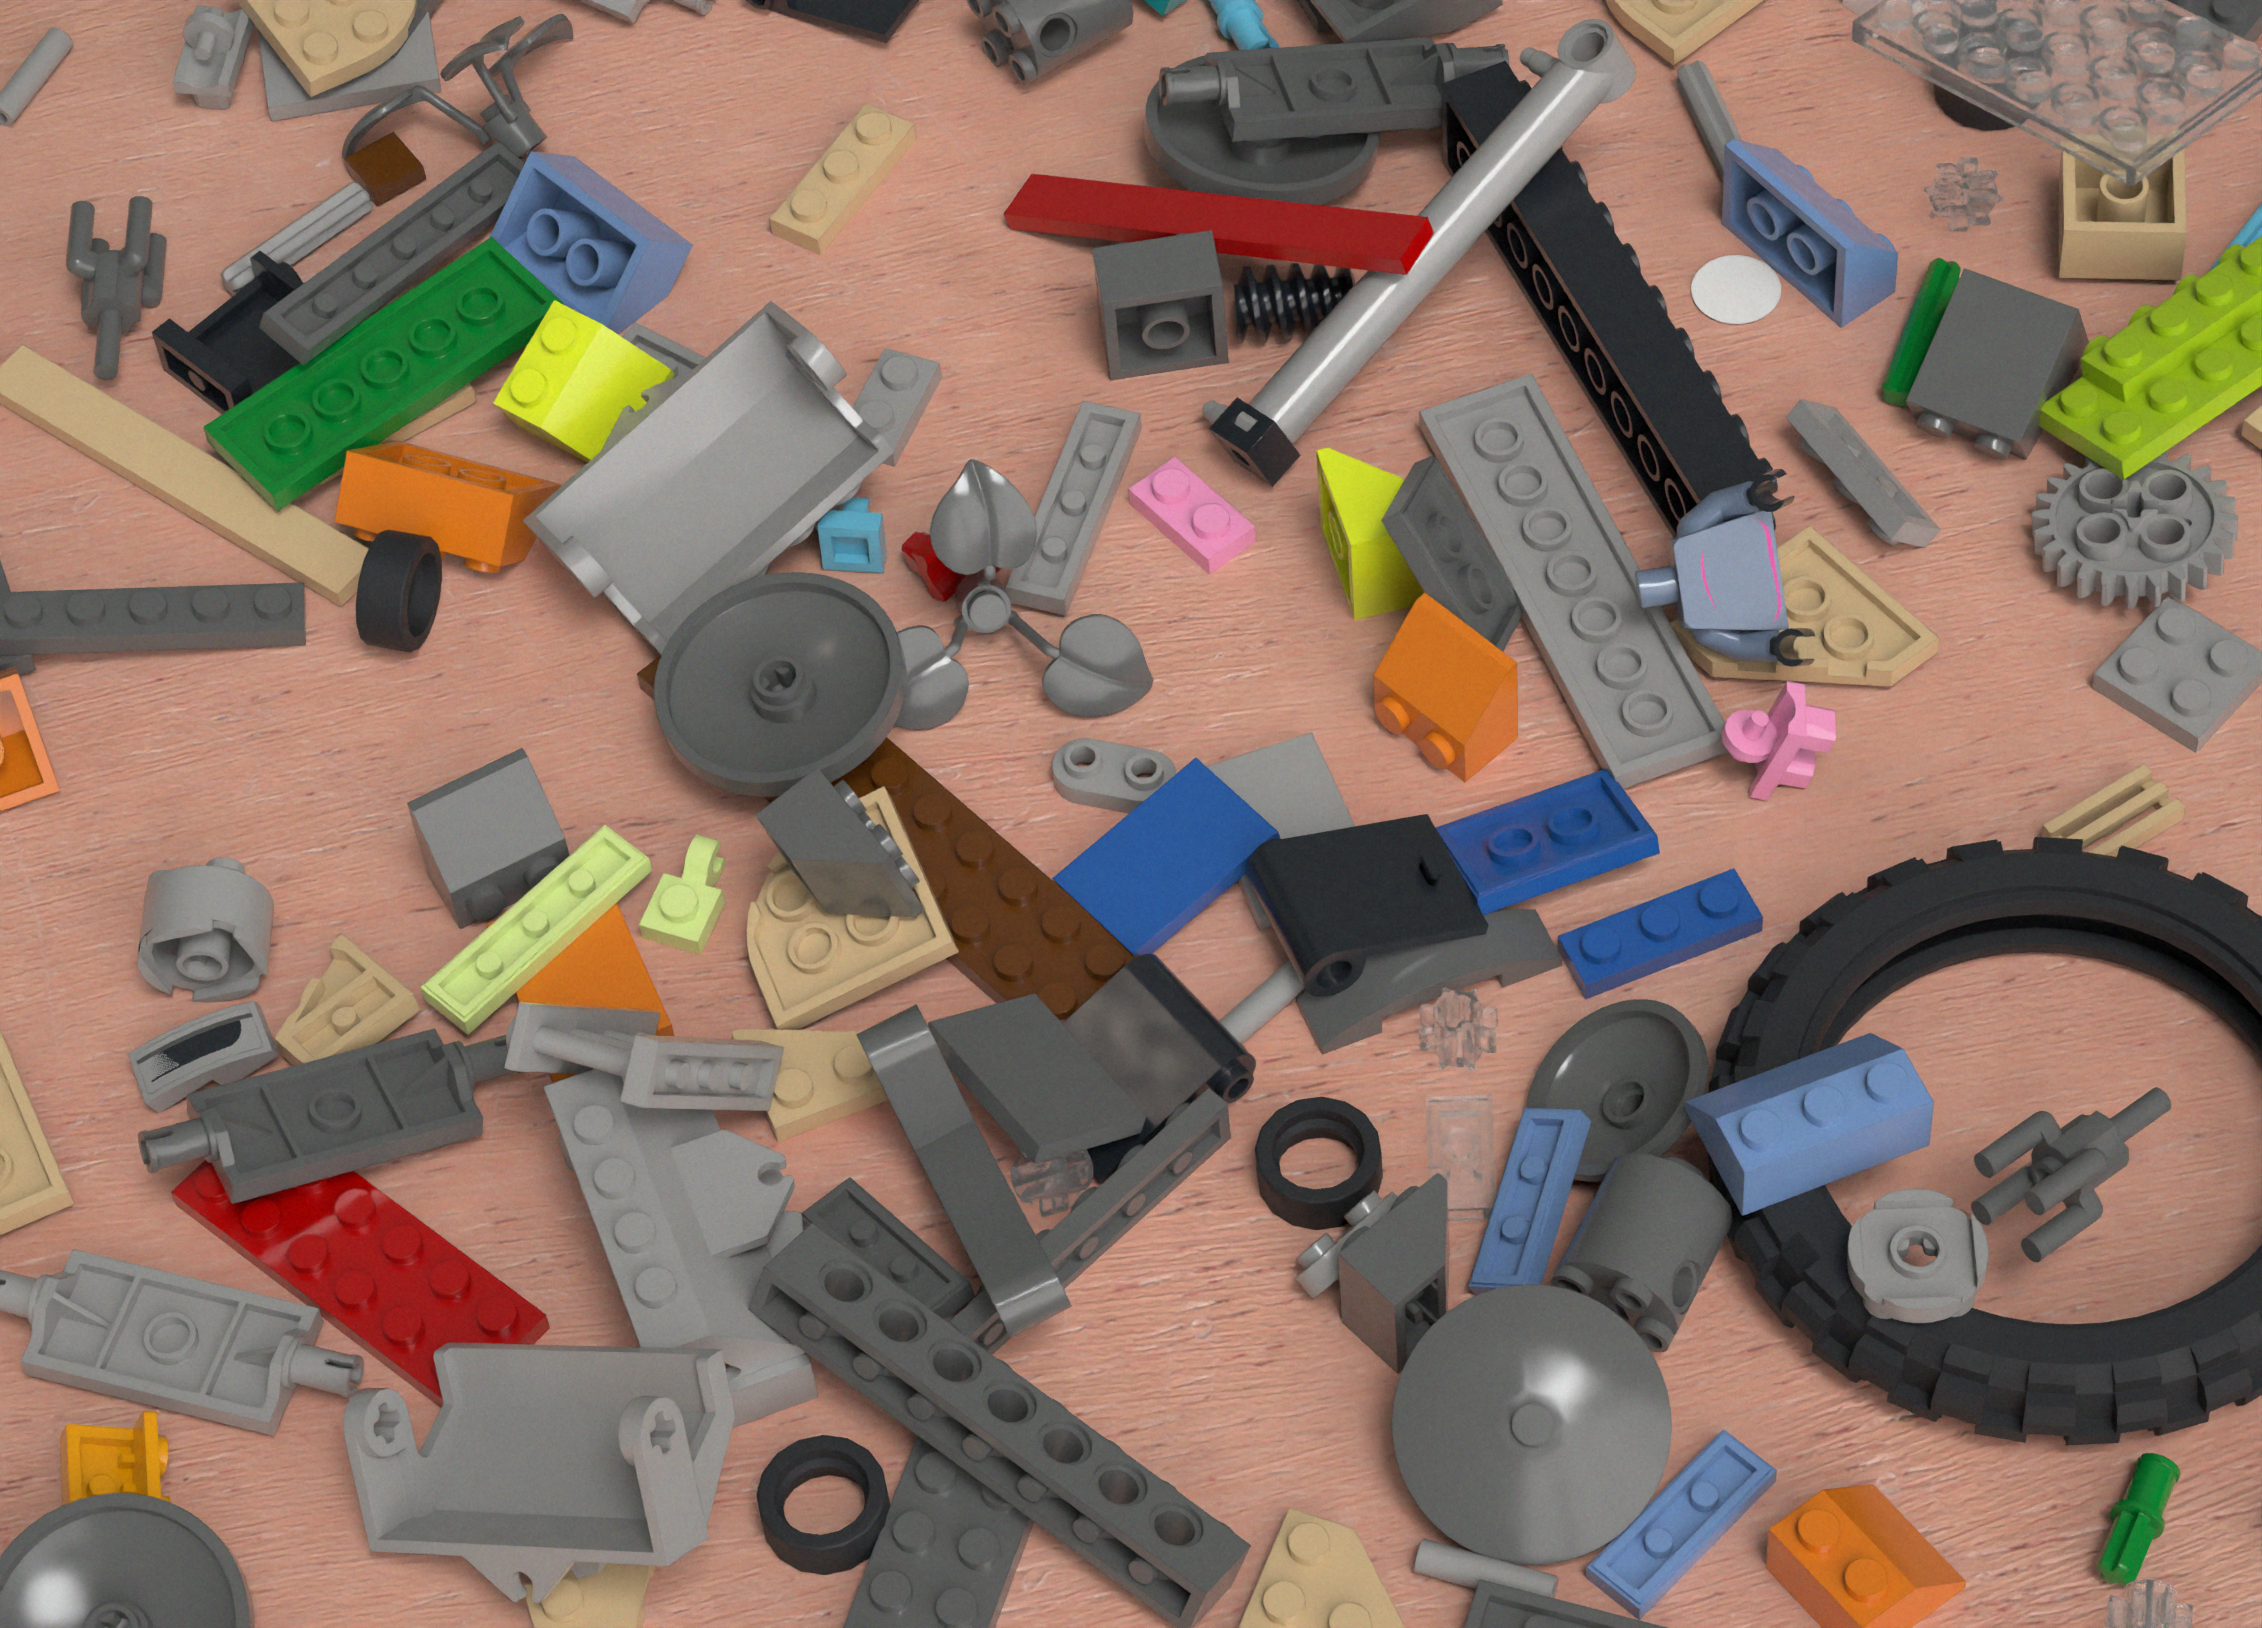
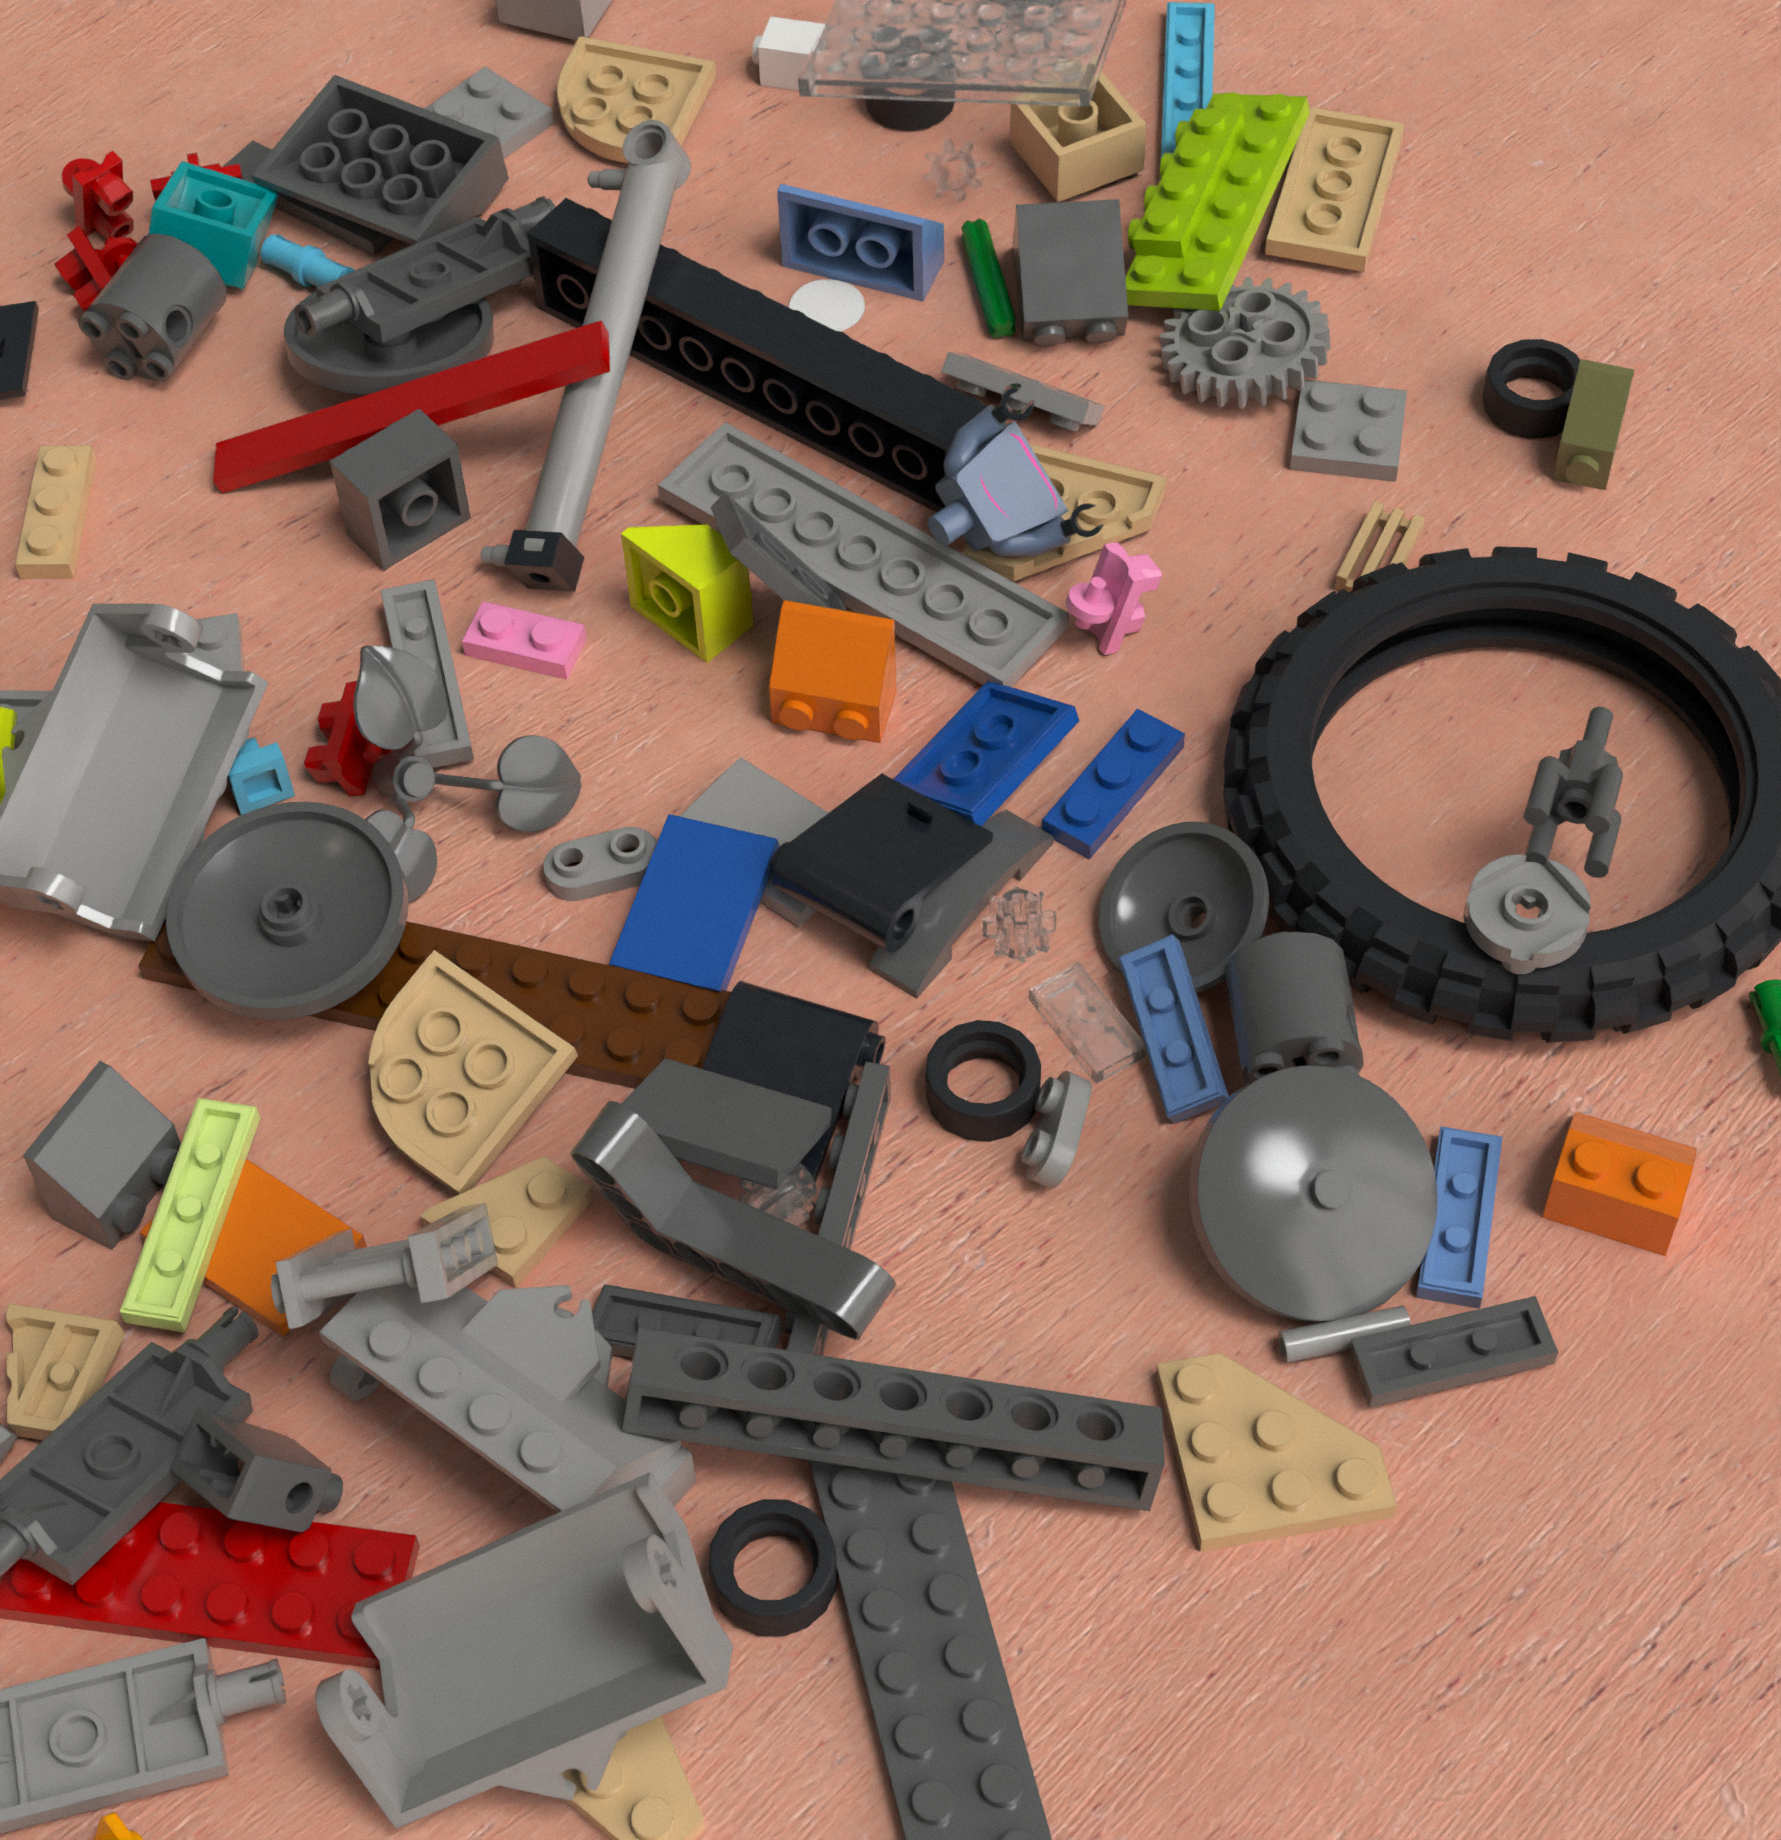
camera: 35 degrees left, 0 degrees up
(438, 1188) = (280, 1478): none -> dark grey torso
(687, 907) = (309, 1134): yellowish green plate -> none
(840, 850) = (443, 1014): dark grey slope -> none
(1263, 1003) = (849, 972): light grey piece -> none
(1288, 300) = (503, 441): black piece -> none
(1398, 1273) = (1126, 1130): dark grey slope -> none
(1707, 110) = (734, 200): light grey axle -> none
(1813, 1121) = (1373, 846): medium blue slope -> none

